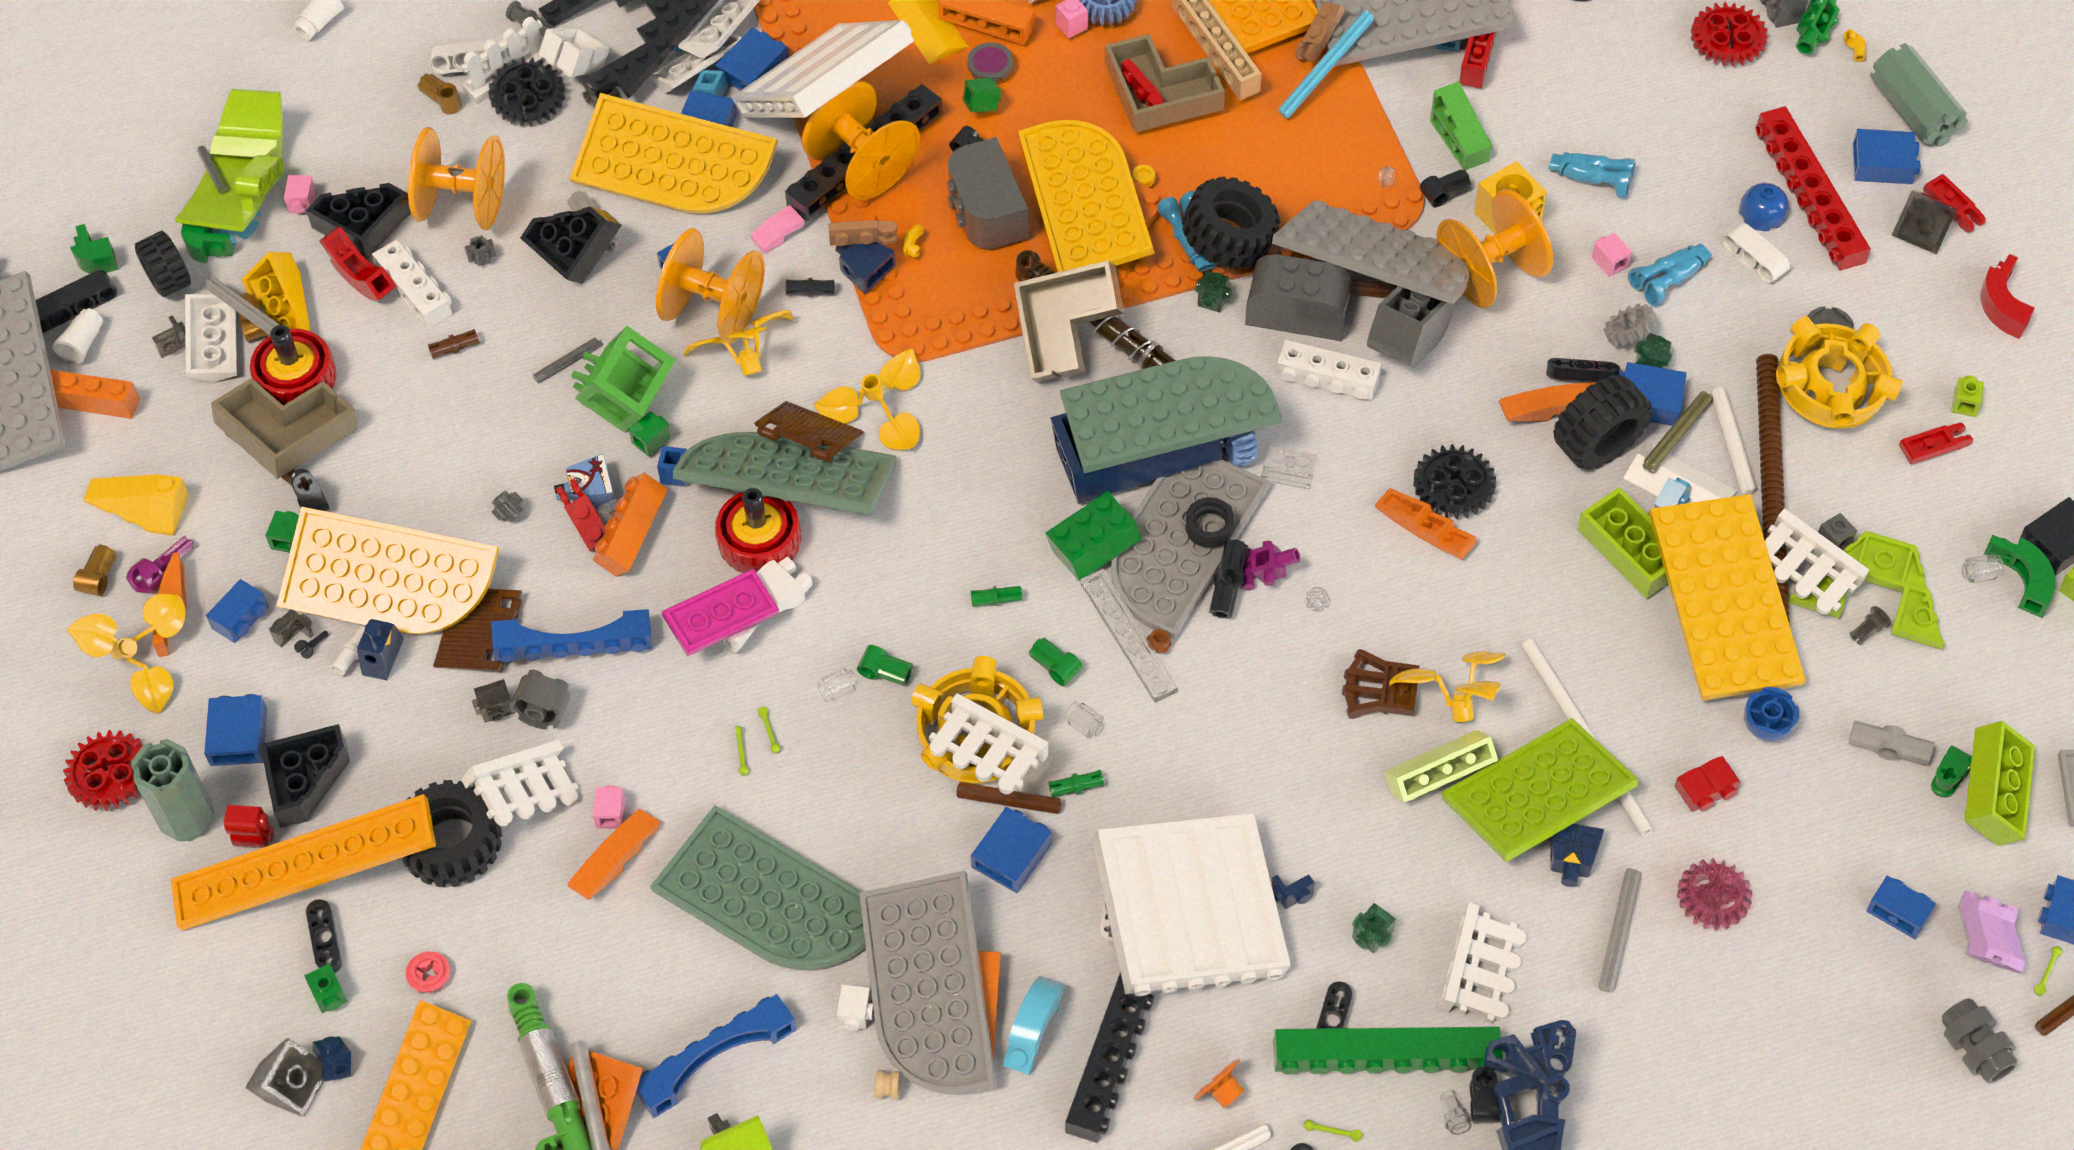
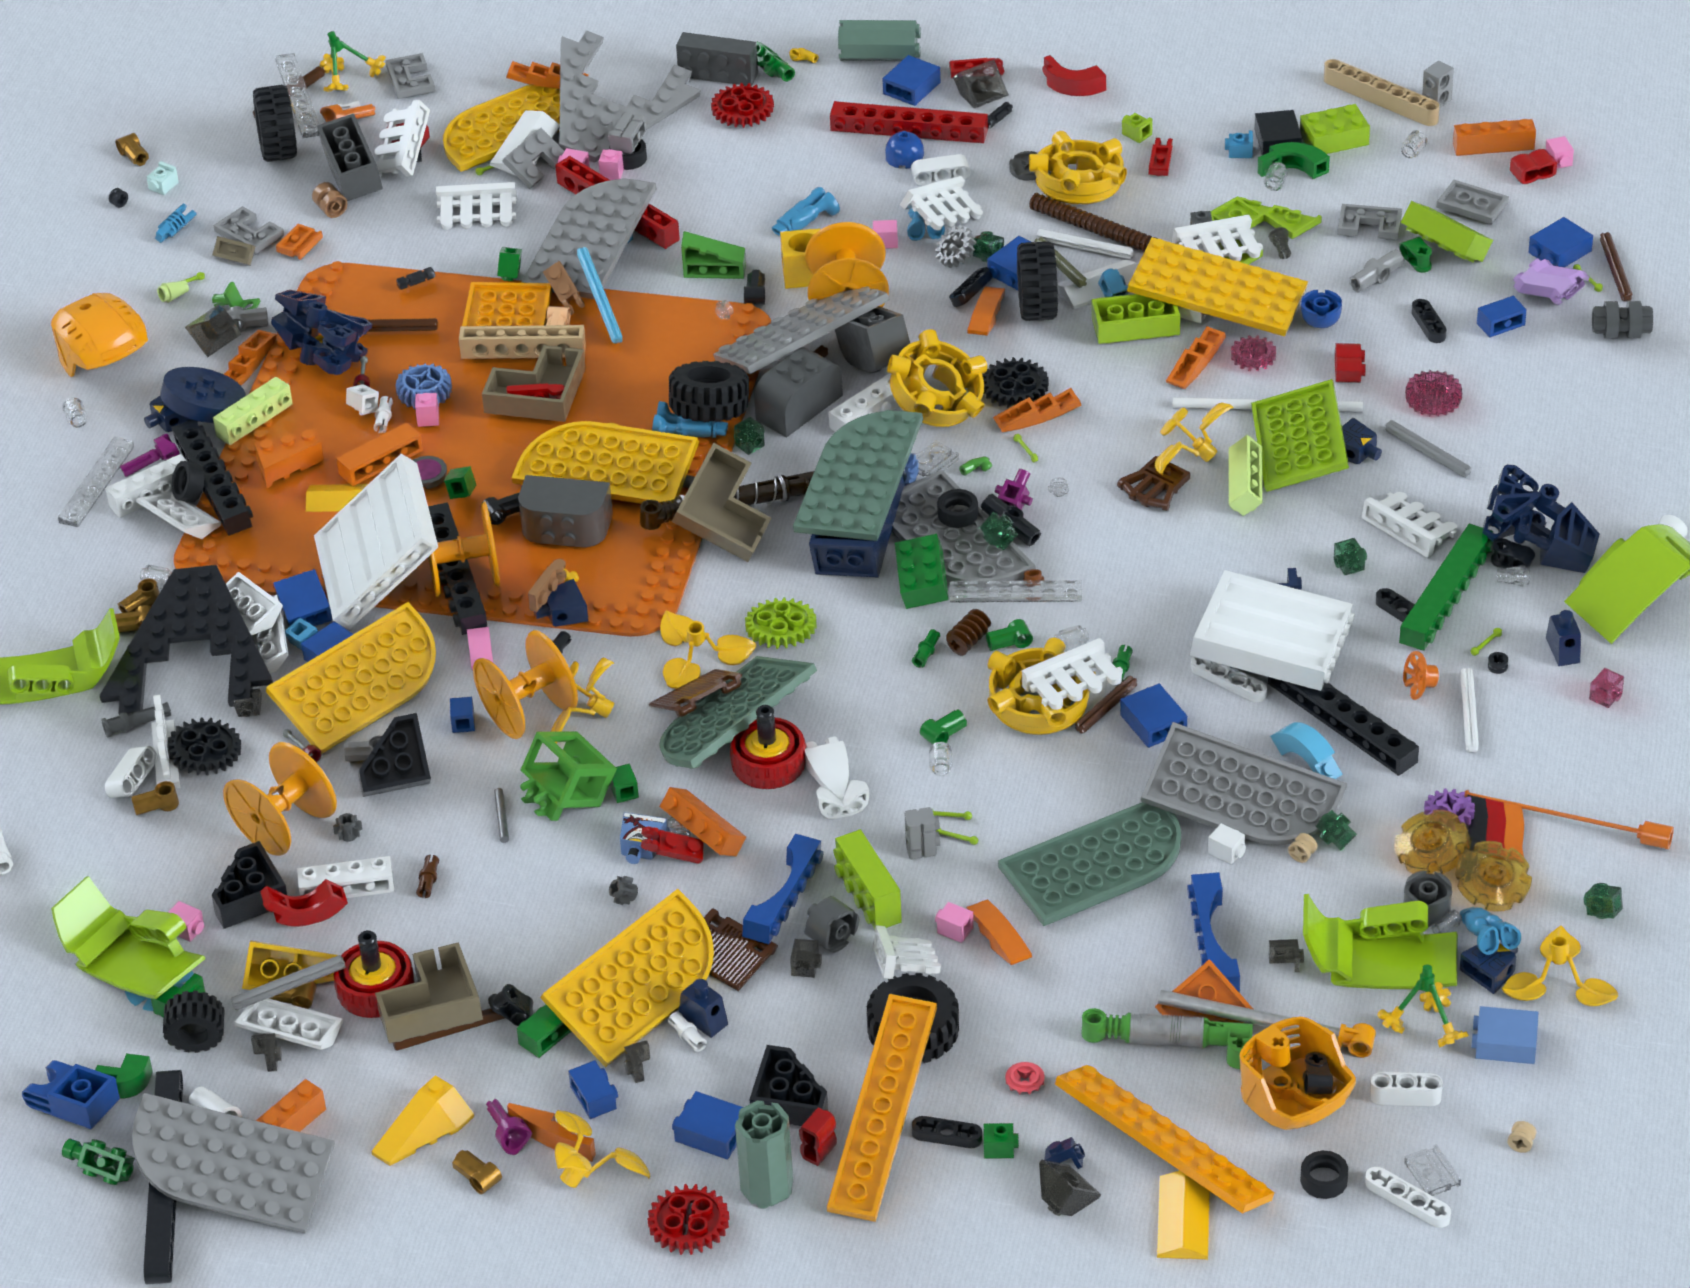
camera: 60 degrees left, 15 degrees down
(49, 228) = (73, 1094): none -> blue brick
(212, 170) = (106, 969): flat silver bar -> none
(308, 652) = (659, 1057): black hand -> none
(563, 172) = (310, 749): none -> hinge
(573, 51) = (197, 696): white piece -> none
(616, 702) = (867, 880): none -> lime brick
(667, 461) = (666, 775): blue brick -> none
(707, 717) = (921, 833): none -> light grey brick
(720, 612) = (836, 788): dark pink plate -> none
(926, 1105) = (1335, 829): none -> clear green brick
(940, 442) = (780, 623): none -> lime gear
(1034, 621) = (968, 631): none -> reddish brown piece
(1190, 574) = (998, 530): none -> clear green brick
(1276, 49) = (558, 315): none -> light nougat piece
(1304, 505) = (973, 464): none -> bright green arm
(1375, 525) = (1017, 437): none -> lime hinge
(1377, 450) = (952, 368): none -> yellow piece
(1611, 632) = (1196, 358): none -> orange slope
(1658, 683) = (1253, 353): none -> clear pink gear
(1702, 269) = (944, 199): none -> white fence
(1845, 823) = (1429, 313): none -> black beam
(1891, 260) = (998, 114): none -> black axle
(1985, 689) = (1354, 215): none -> light grey plate
(2013, 508) = (1240, 145): none -> dark azure brick

